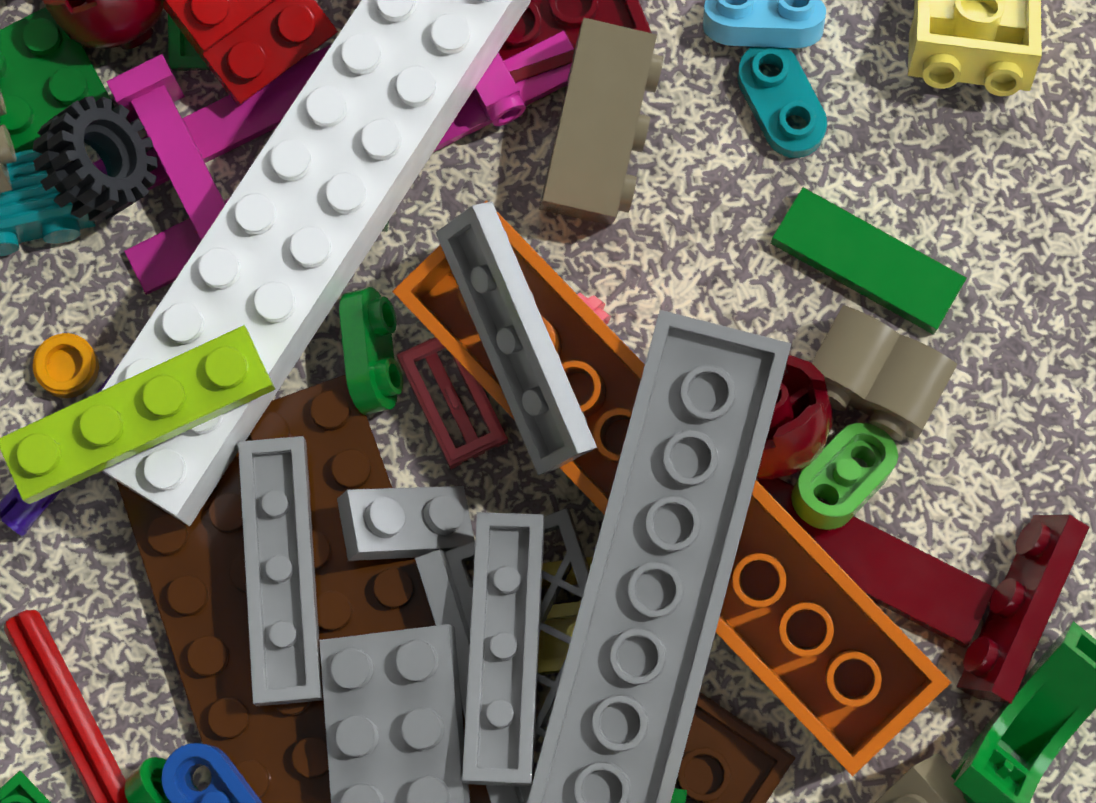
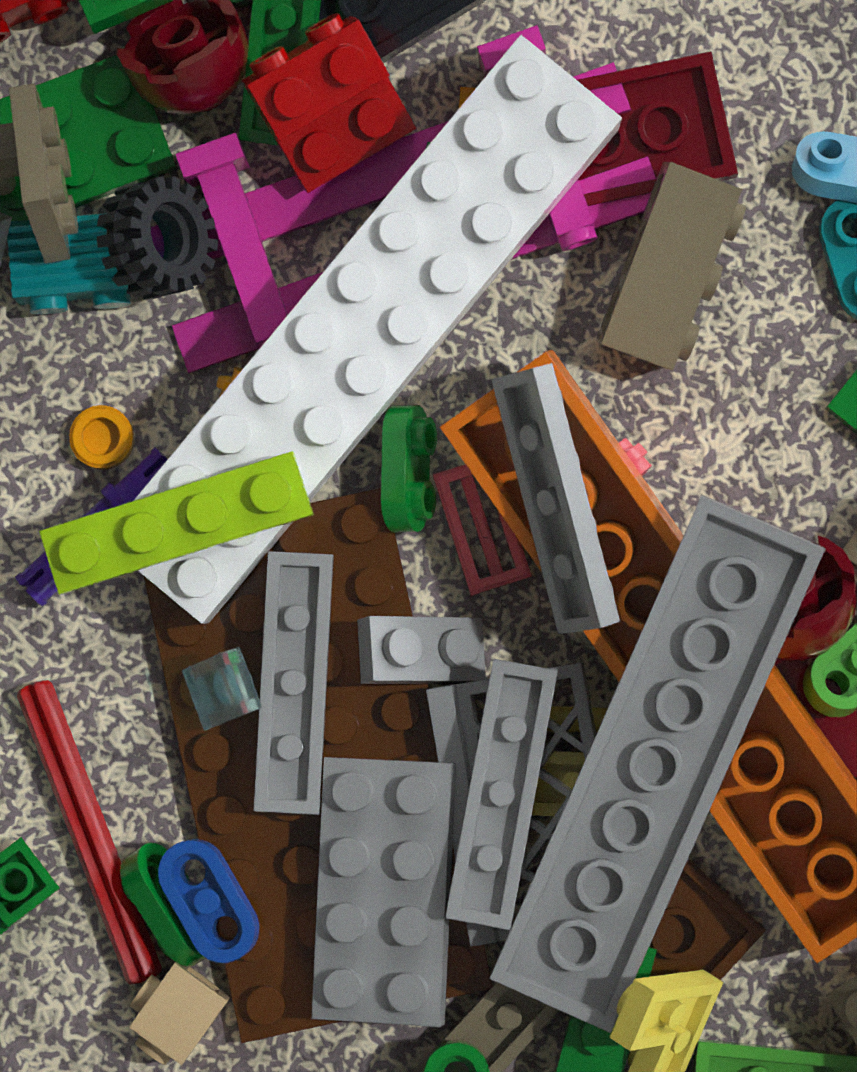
camera: 10 degrees right, 10 degrees up
(207, 585) = (221, 688): none -> clear light blue plate

